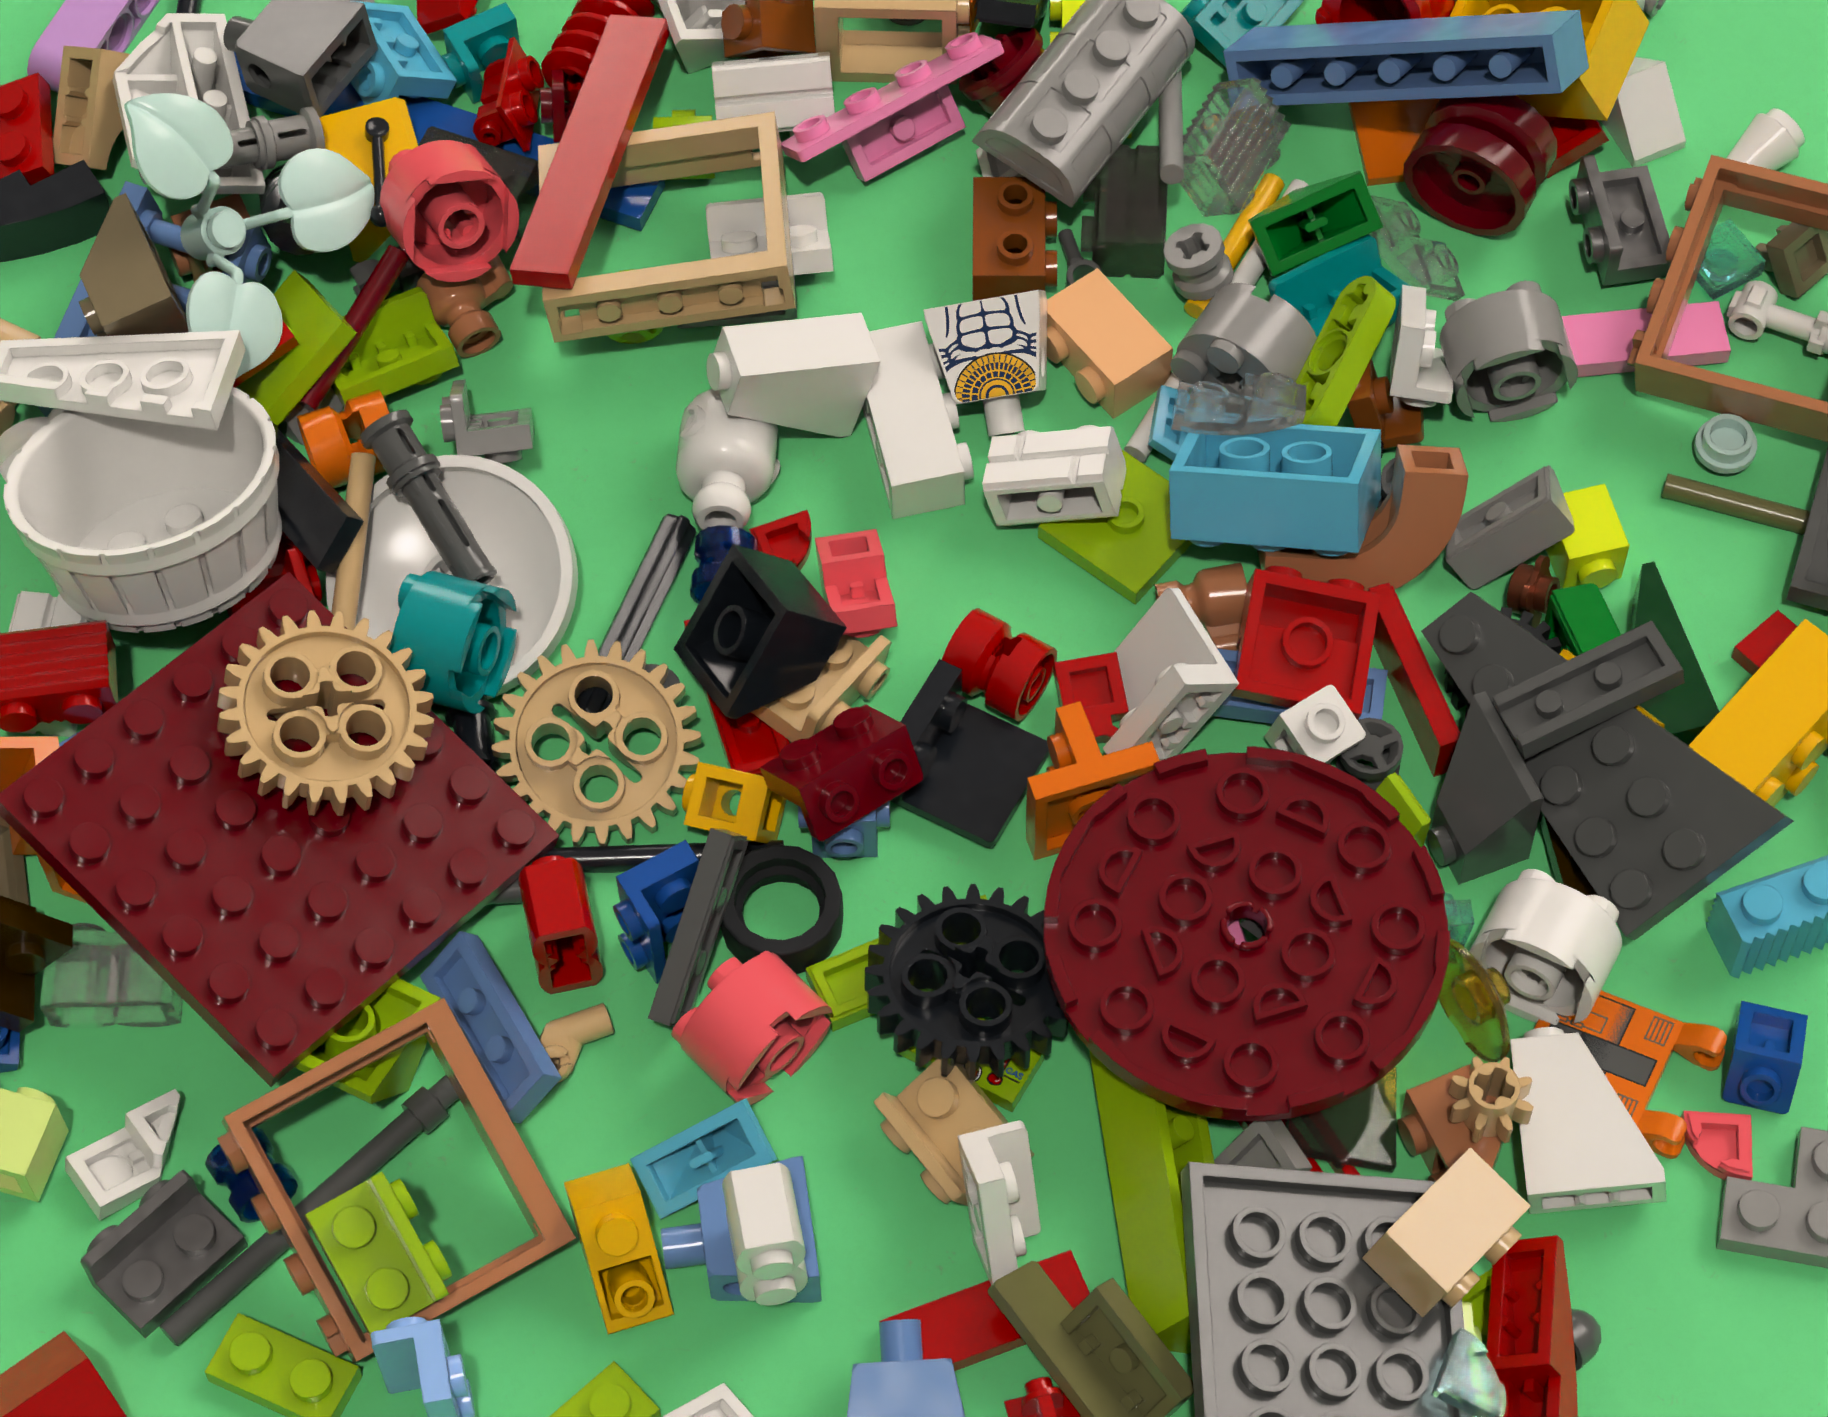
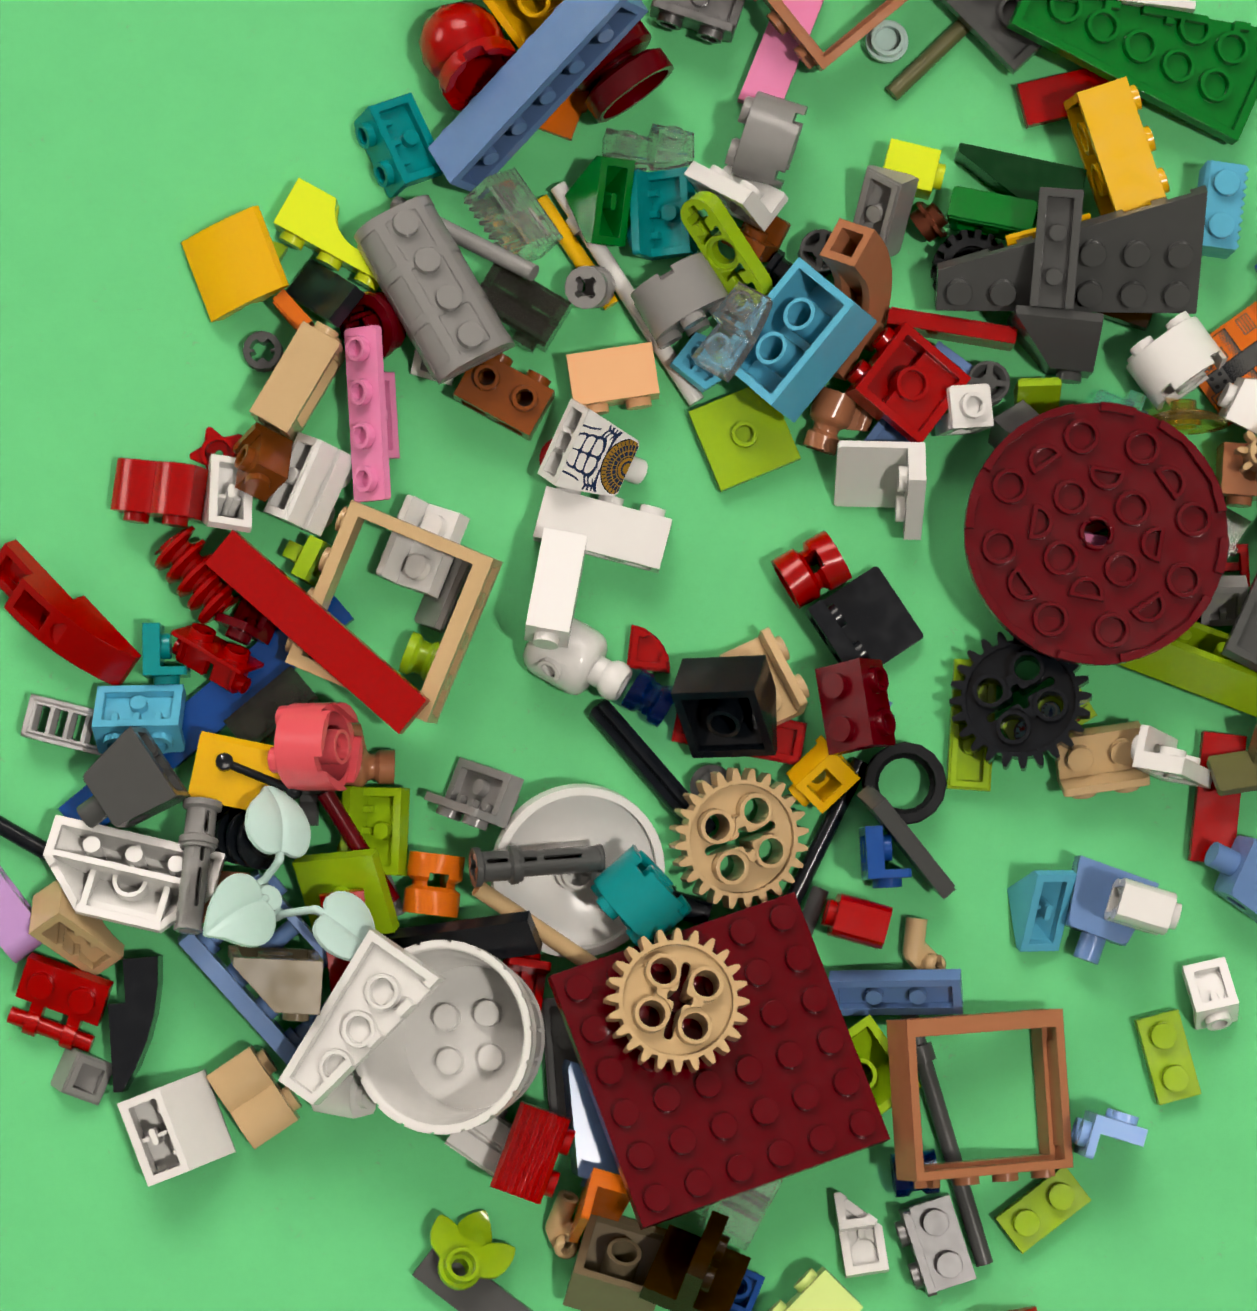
camera: 70 degrees left, 25 degrees up
(379, 1253) = (1027, 1129): lime bracket -> none
(619, 1248) = (1069, 984): yellow slope -> none
(753, 1025) = (983, 841): coral brick -> none
(856, 581) = (711, 625): coral brick -> none
(1054, 476) = (701, 463): white brick -> none
(1076, 779) = (938, 566): orange bracket -> none
(1077, 265) = (537, 359): dark grey hand -> none
(1098, 686) = (860, 525): red plate -> none

